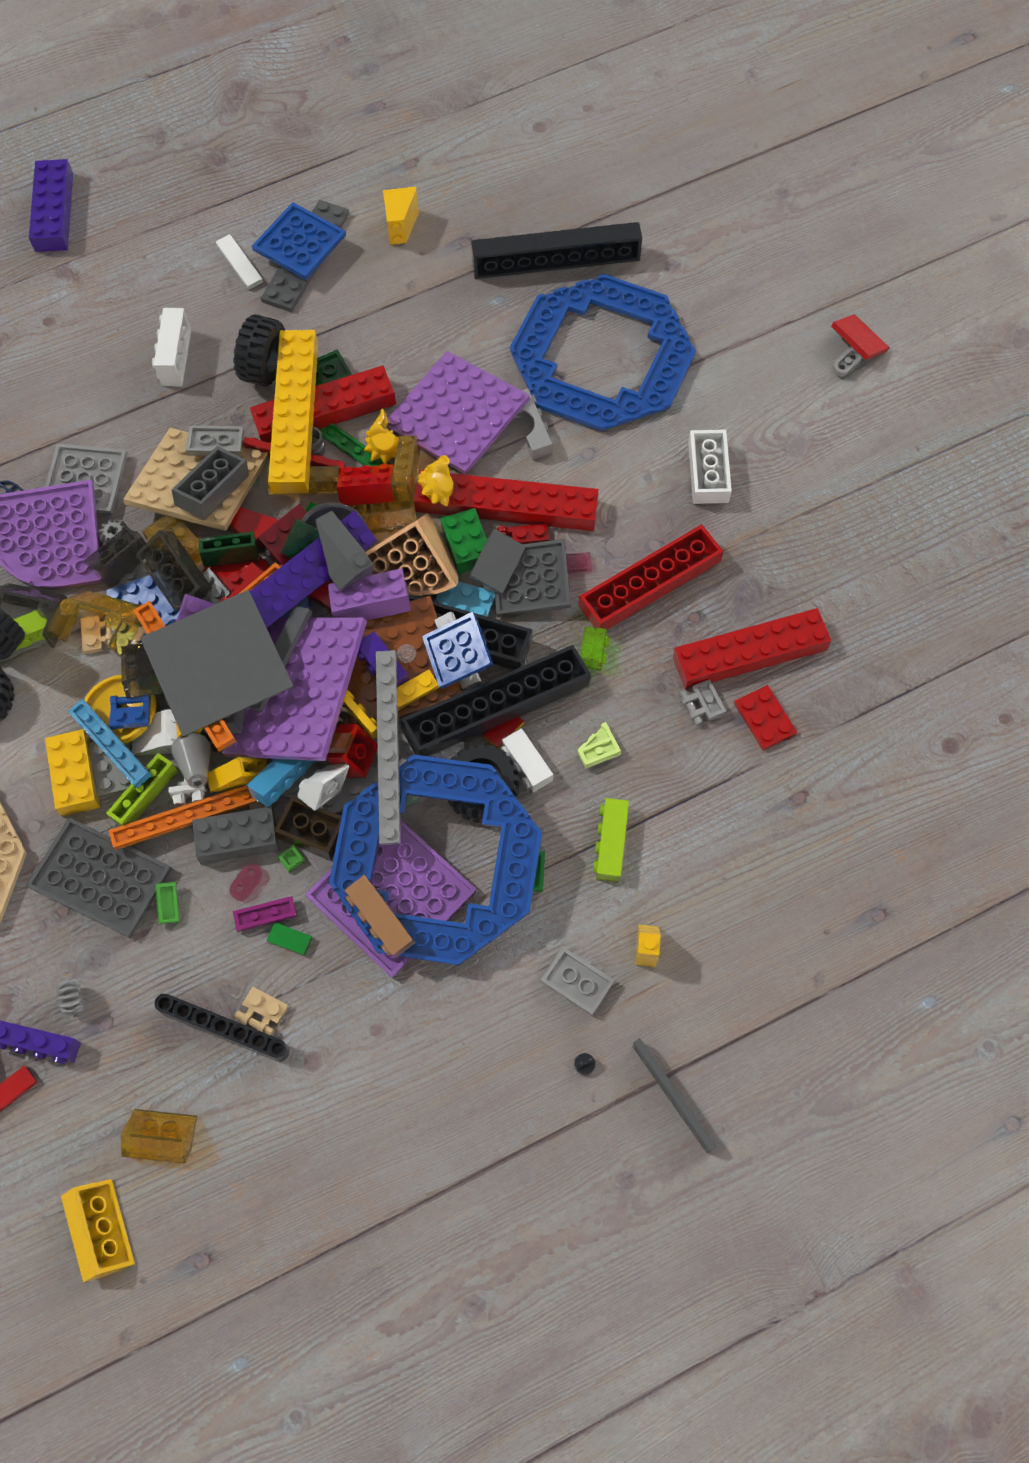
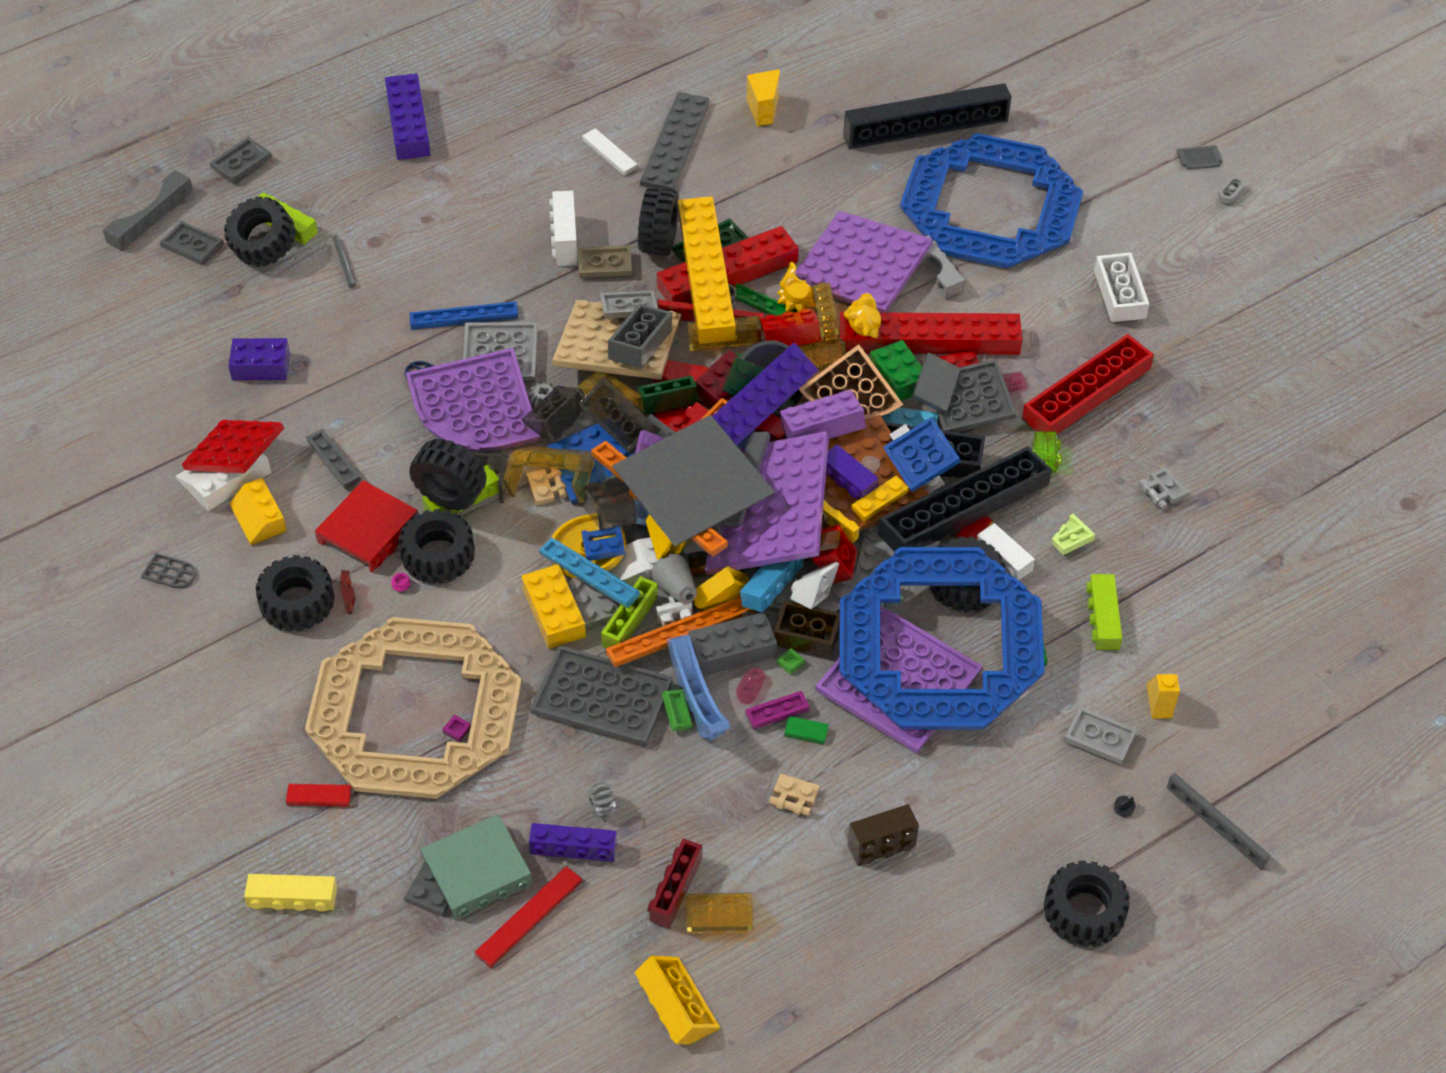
camera: 10 degrees left, 15 degrees down
(60, 433) = (463, 315): none -> blue tile
(121, 1101) = (675, 883): none -> dark red brick
(188, 896) = (699, 701): none -> medium blue arch
(206, 386) = (604, 261): none -> dark tan plate
(214, 1020) = (770, 808): black beam -> none
(299, 240) = (669, 127): blue plate -> none
(333, 1074) = (883, 834): none -> dark brown brick
(344, 556) = (796, 380): dark grey wedge -> none
(379, 916) = (899, 690): medium nougat brick -> none
(388, 748) = (874, 543): light grey plate -> none
(540, 1199) = (1093, 880): none -> black tyre
(751, 648) = (1199, 437): red brick -> none
(765, 717) = (1226, 496): red plate -> none
(821, 318) = (1199, 157): none -> dark grey window
(860, 337) = (1238, 167): red tile -> none

